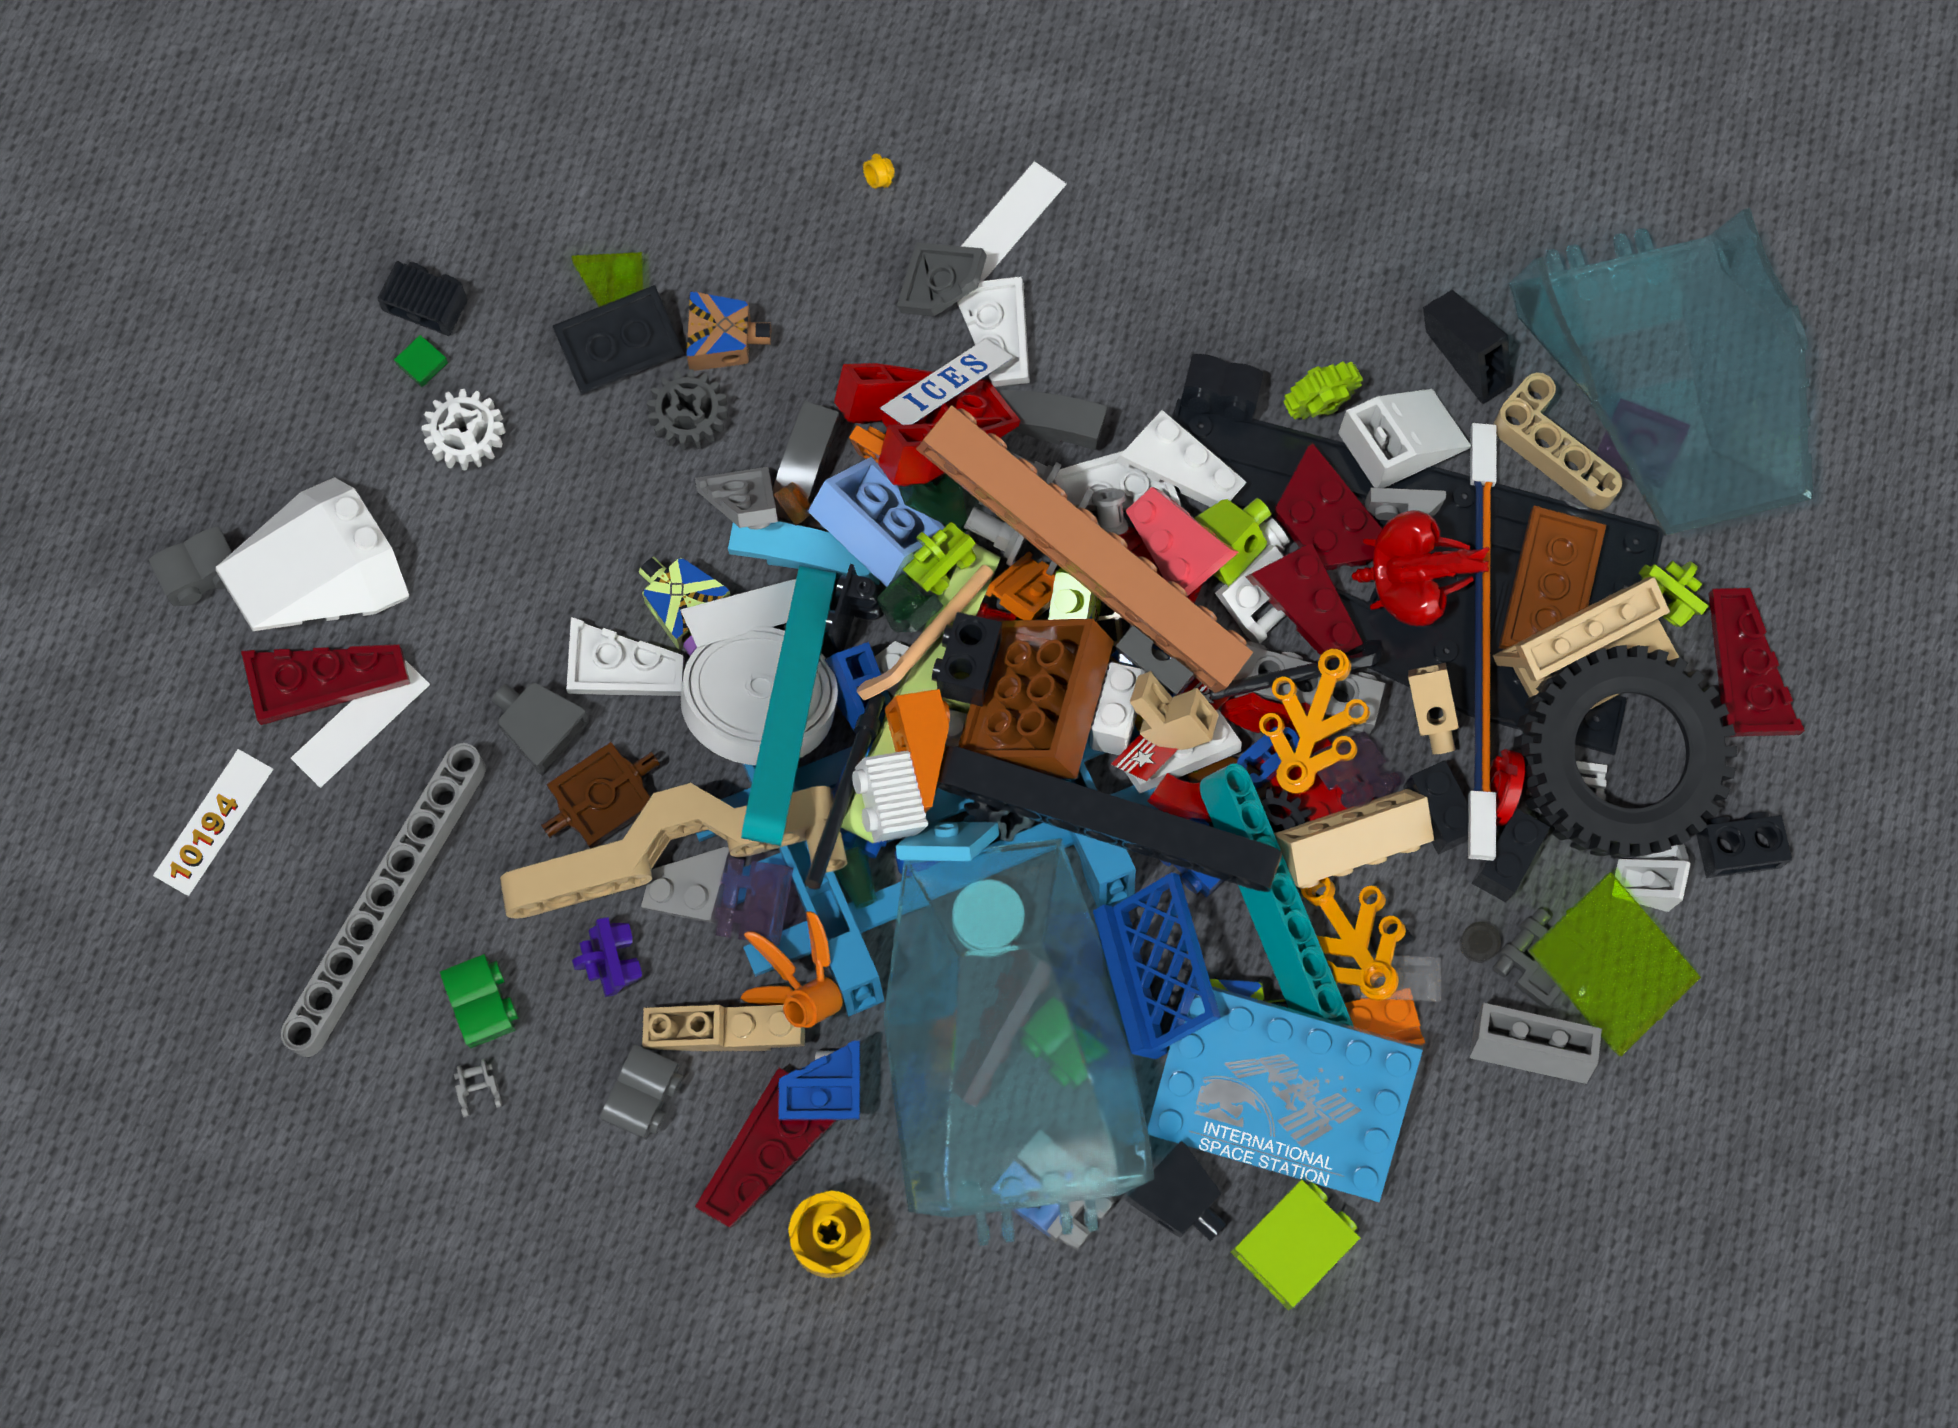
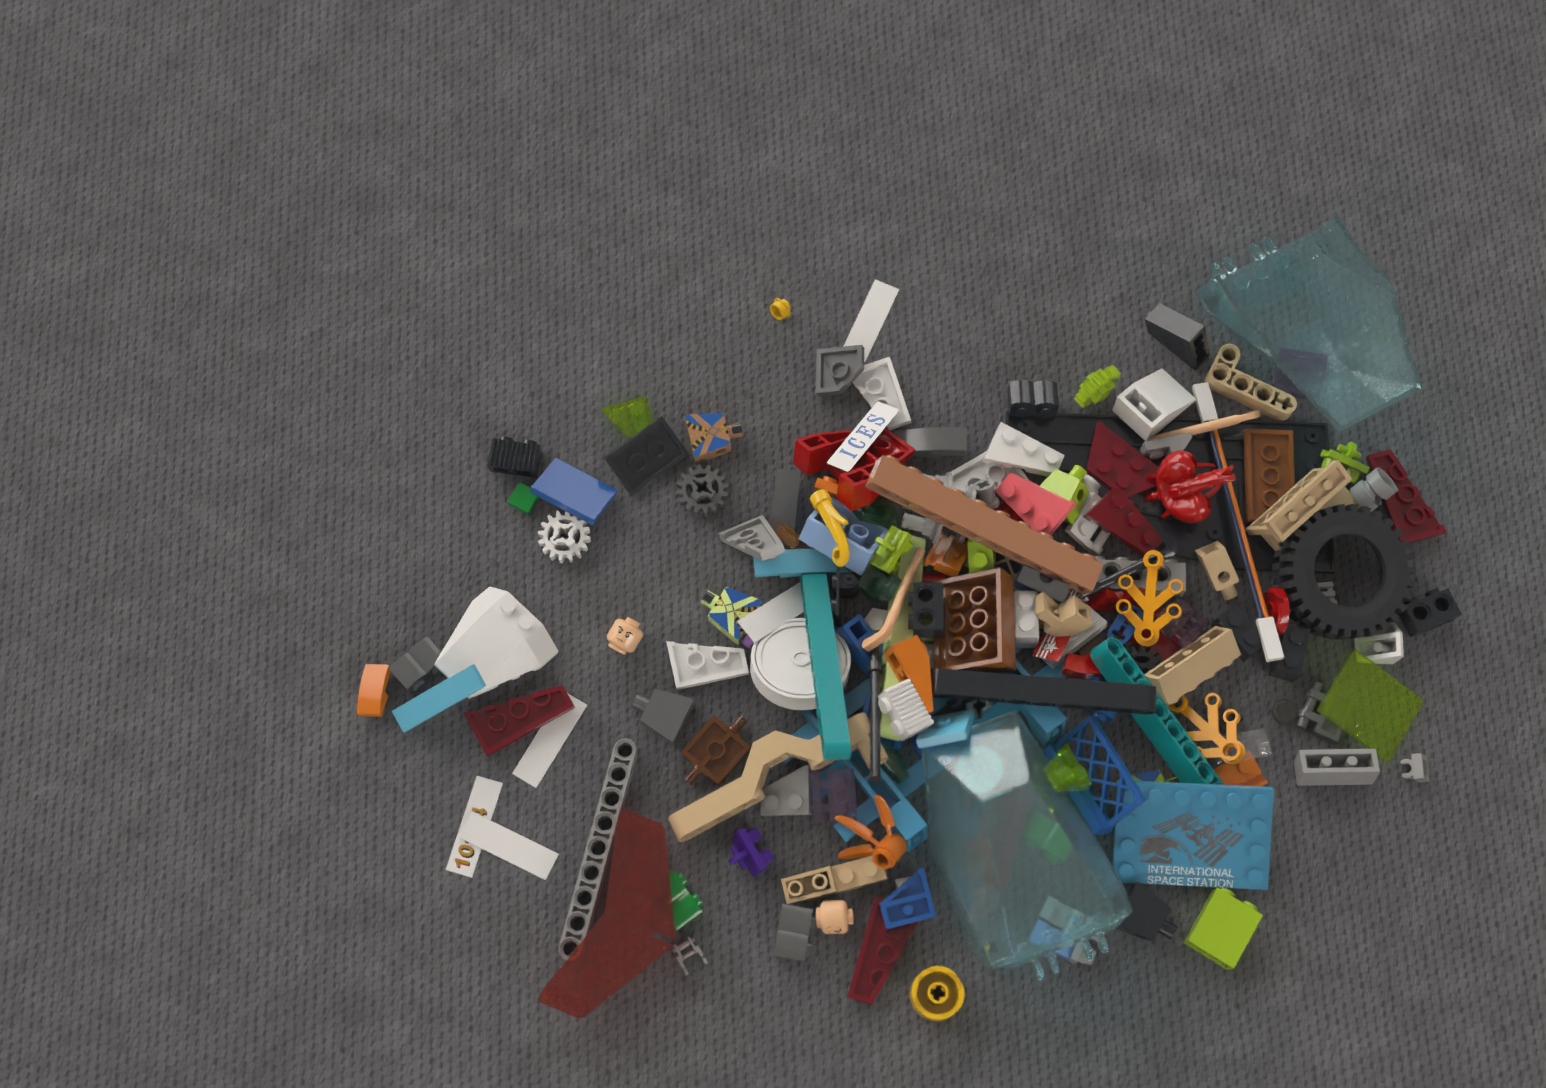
camera: 10 degrees left, 0 degrees up
(116, 589) = (372, 691): none -> orange slope
(208, 619) = (439, 698): none -> medium azure slope
(255, 862) = (508, 845): none -> white sticker
(379, 1037) = (622, 938): none -> clear red wing
(495, 366) = (573, 491): none -> tile
(511, 594) = (624, 635): none -> light nougat head
(708, 1083) = (834, 917): none -> light nougat head
(854, 463) = (823, 503): none -> yellow plant
(1114, 949) = (1066, 772): none -> clear neon green wing
(1487, 488) = (1211, 425): none -> light nougat piece
(1665, 1075) = (1419, 768): none -> light grey tile
(1709, 639) = (1375, 488): none -> light grey wheel

